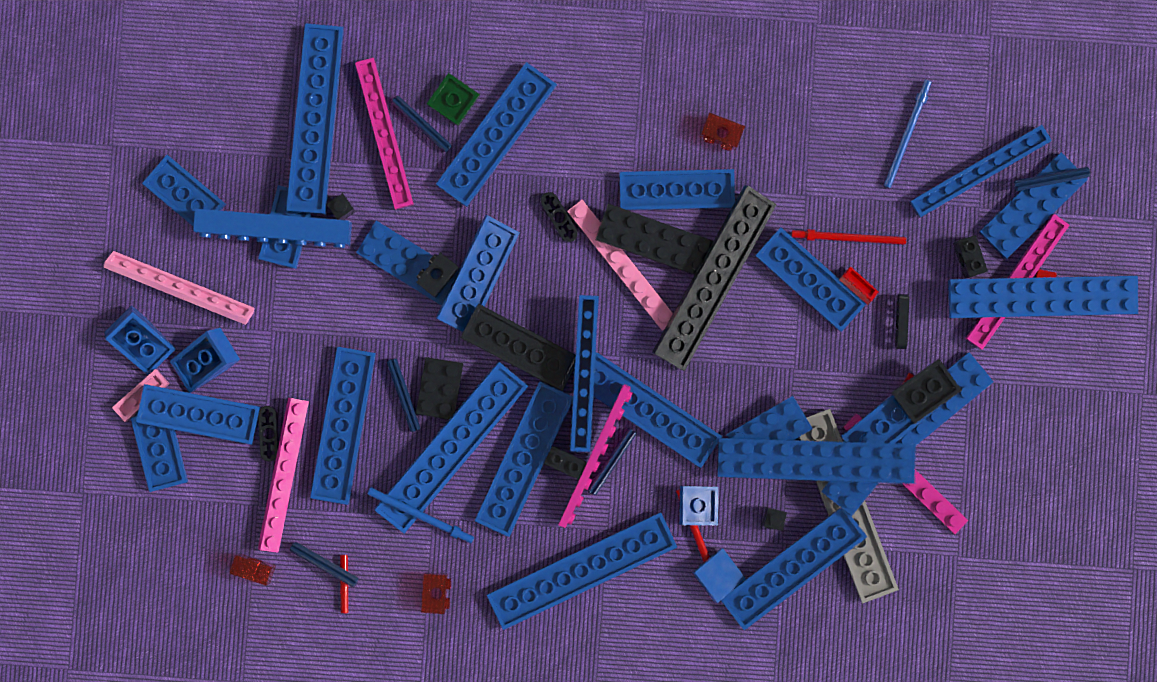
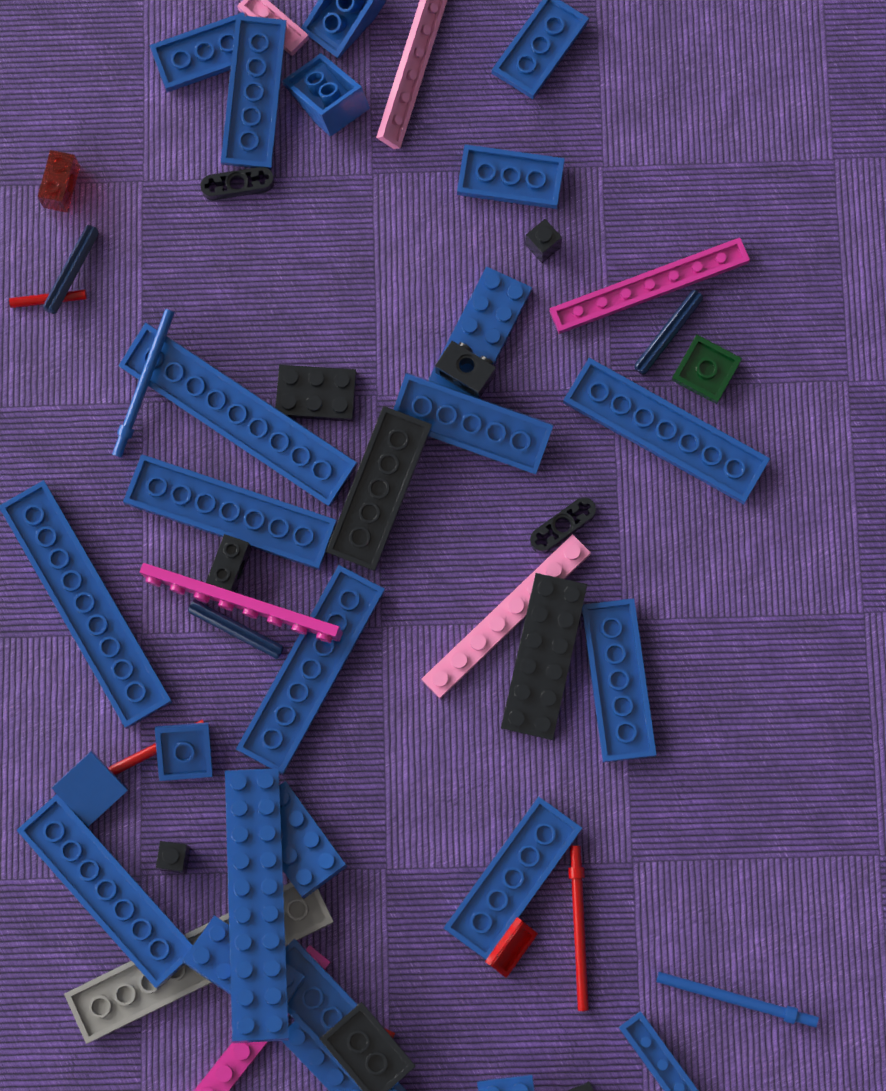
camera: 90 degrees right, 10 degrees down
(272, 227) = (507, 156): blue brick -> none
(283, 475) = (184, 206): plate -> none
(315, 119) = (657, 194): blue plate -> none
(343, 425) = (255, 274): blue plate -> none
(403, 395) = (302, 347): dark blue axle -> none
(429, 603) = (29, 406): clear red brick -> none
(584, 373) = (349, 574): blue brick -> none
(714, 278) = (501, 742): black plate -> none
(733, 130) = (716, 720): clear red brick -> none
(902, 321) = (472, 1014): black beam -> none

